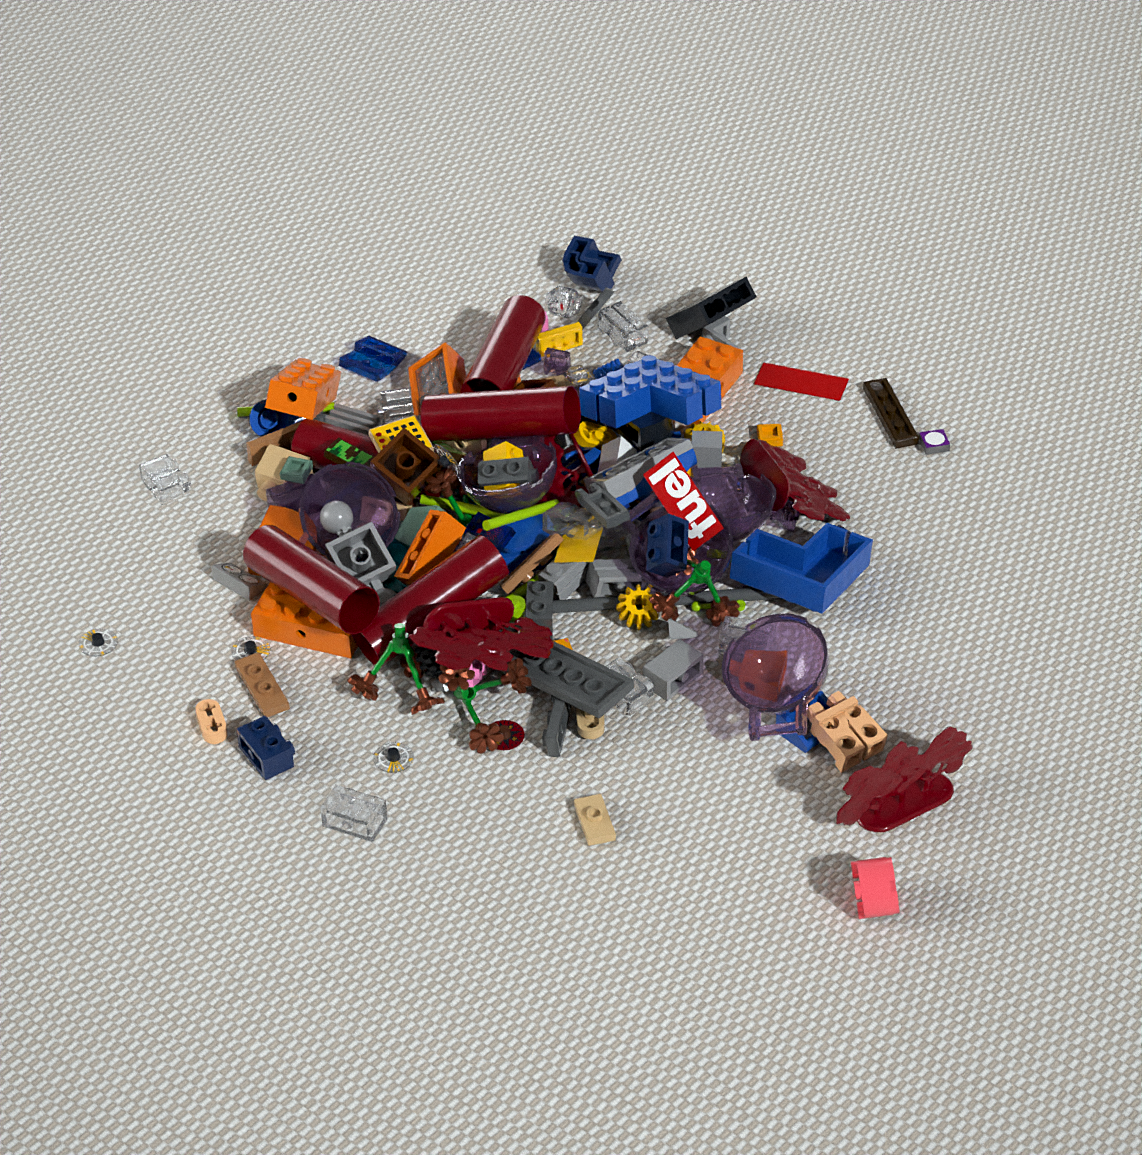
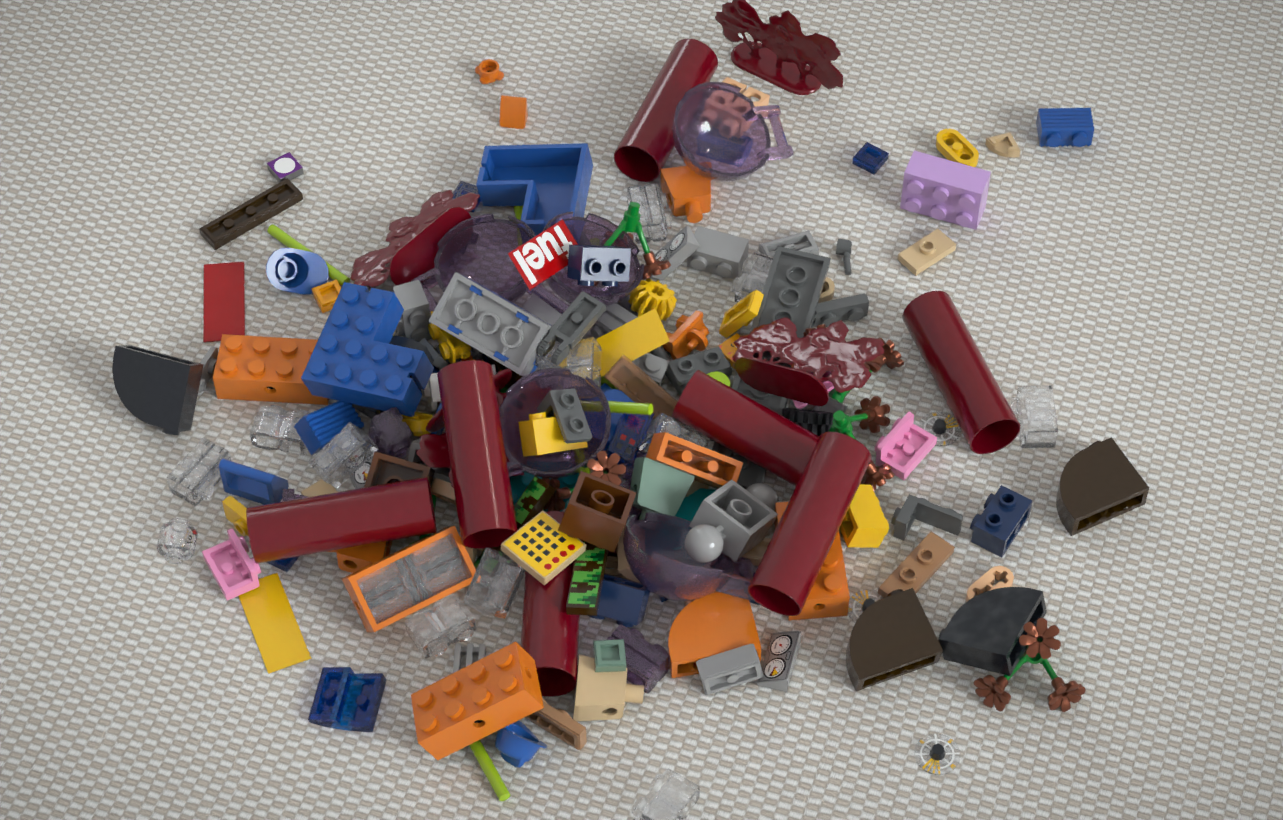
camera: 115 degrees left, 10 degrees up
(115, 676) = (1039, 641): none -> copper plant
(162, 693) = (989, 627): none -> black brick
(202, 636) = (890, 640): none -> dark brown brick
(245, 529) = (729, 669): none -> light grey slope
(255, 823) = (1098, 487): none -> dark brown brick
(310, 701) = (926, 512): none -> dark grey bracket
(328, 656) = (864, 521): none -> yellow brick
(381, 715) = (904, 446): none -> bright pink bracket
(428, 769) = (961, 372): none -> dark red piece
(446, 459) = (585, 465): piece -> none
(461, 341) = (274, 624): none -> yellow sticker
(583, 648) = (741, 313): none -> yellow plate
(588, 620) = (689, 335): none -> orange hips
(589, 266) = (105, 532): dark blue brick -> none
(595, 306) = (186, 496): dark grey tile -> none
(599, 353) = (251, 483): none -> blue tile
(630, 763) = (844, 248): none -> dark grey hand
(647, 839) = (945, 190): none -> lavender brick
(655, 741) = (789, 242): none -> light grey tile
(691, 982) = (1065, 127): none -> blue brick
(699, 934) = (1003, 145): none -> tan tile
(709, 887) = (956, 147): none -> yellow plate
(738, 824) = (870, 158): none -> clear blue tile
(801, 411) = (296, 270): none -> piece
(824, 432) = (290, 242): none -> lime bar
(875, 887) = (901, 39): coral brick -> none
(880, 687) = (650, 135): none -> dark red piece
(929, 593) = (513, 112): none -> orange slope
(994, 592) = (489, 71): none -> orange plate

